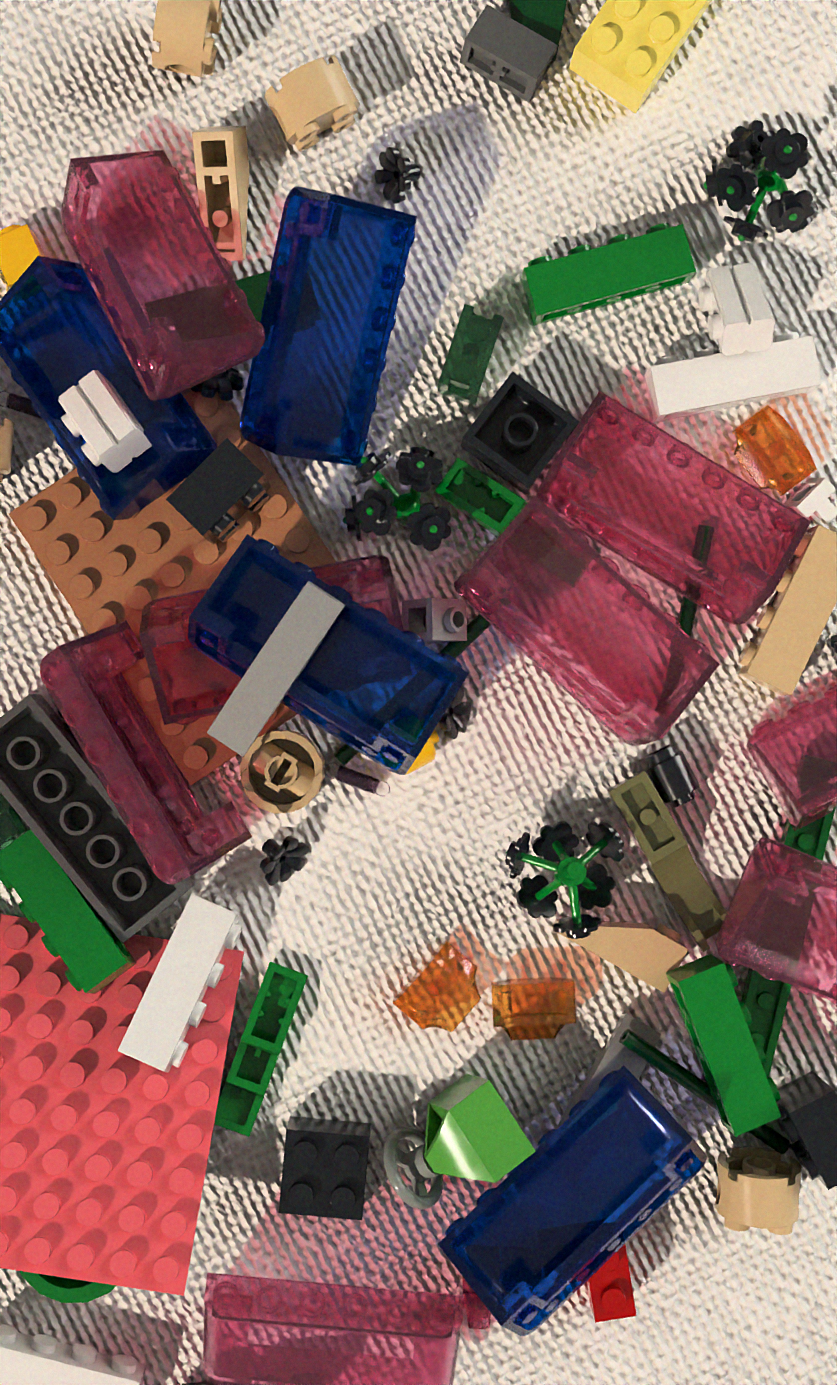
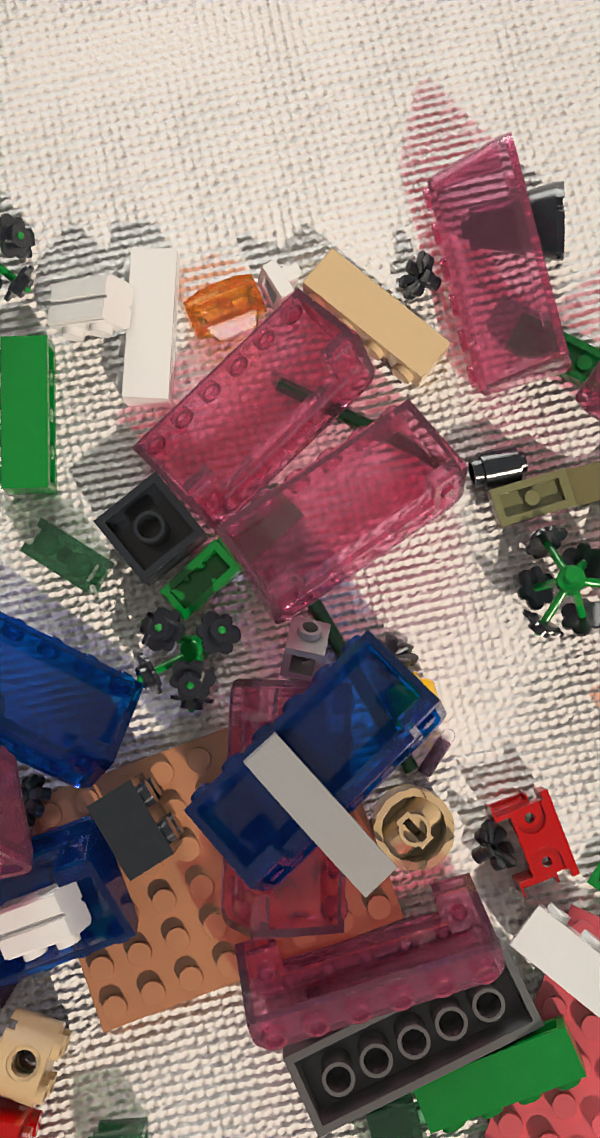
camera: 75 degrees left, 5 degrees down
(302, 898) = (538, 837): none -> red piece

